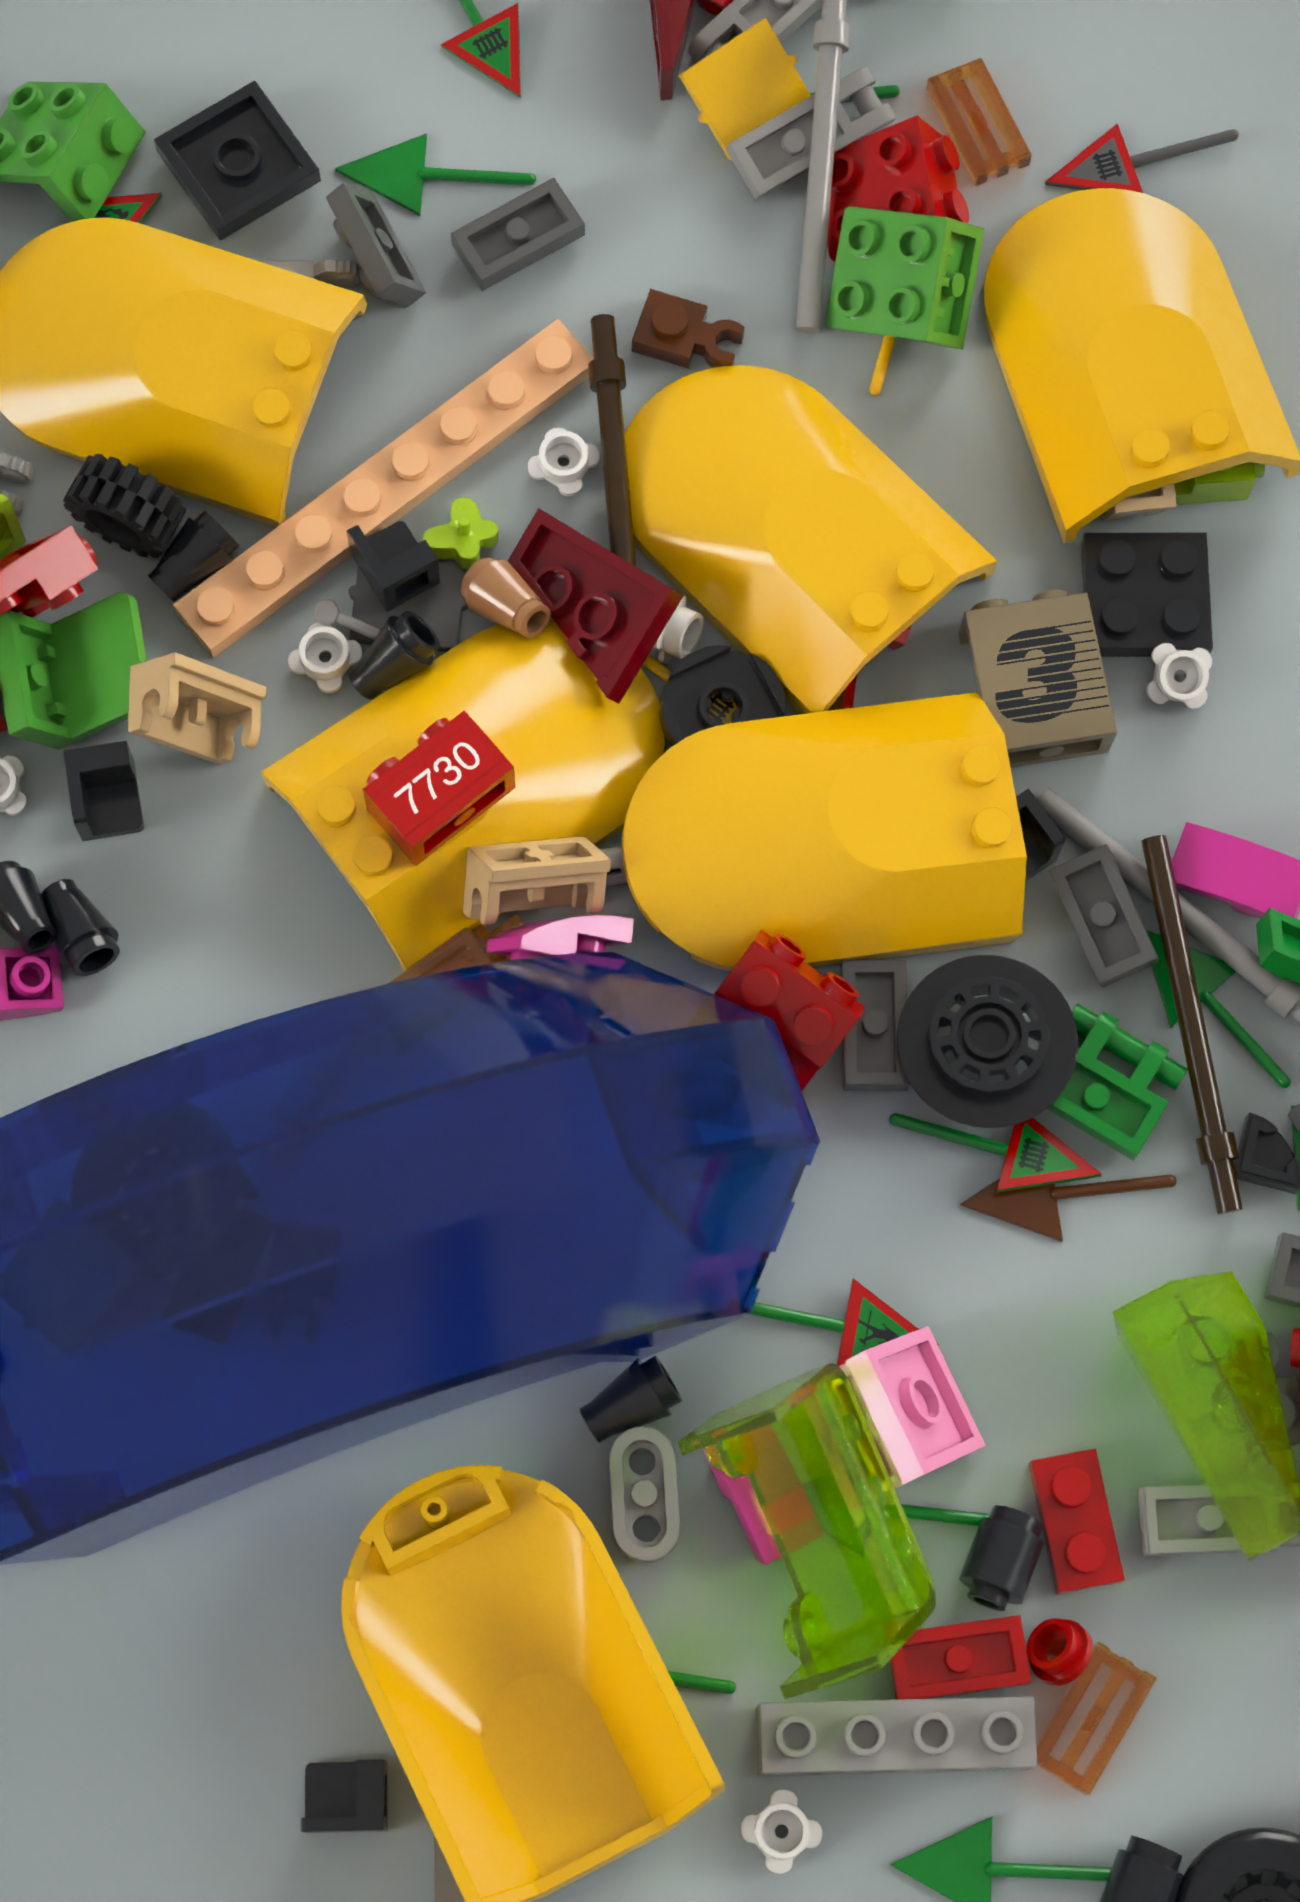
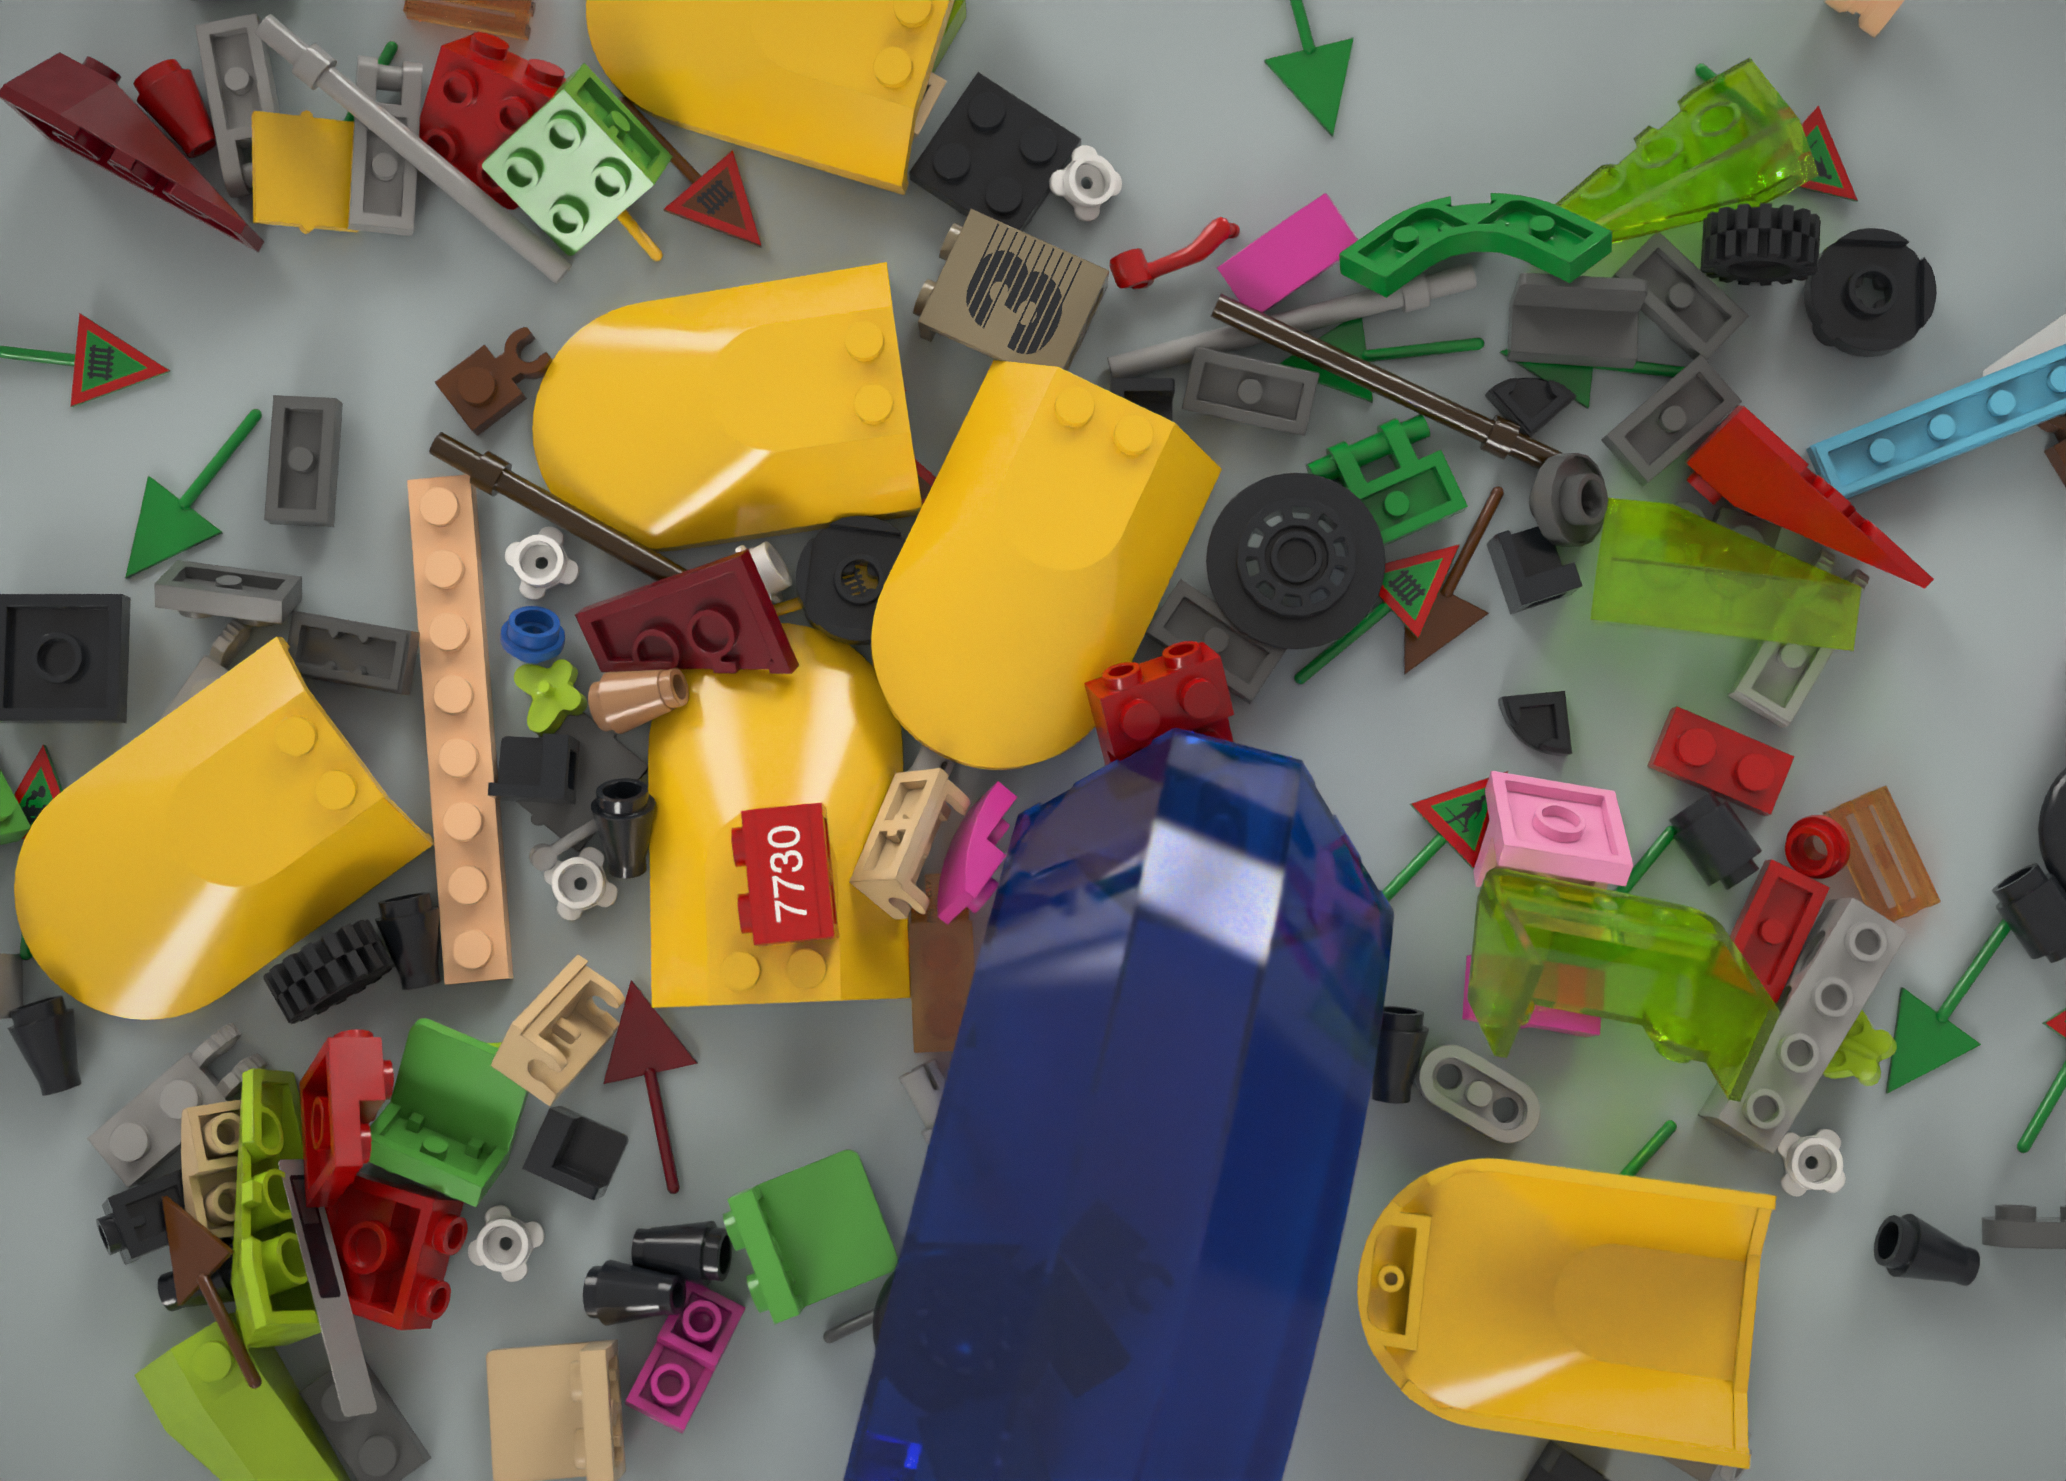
camera: 55 degrees left, 10 degrees up
(149, 1001) = (810, 1234): none -> bright green bracket
(222, 793) = (642, 1048): none -> dark red piece
(391, 365) = (353, 652): none -> dark grey plate
(500, 489) = (532, 634): none -> blue plate
(907, 1807) = (1861, 1052): none -> lime piece
(951, 402) = (712, 199): none -> piece
(1000, 1342) = (1539, 721): none -> black tile
(1124, 1248) = (1530, 569): none -> black panel
(1137, 757) = (1133, 271): none -> red piece
(1204, 1235) = (1569, 500): none -> dark grey plate

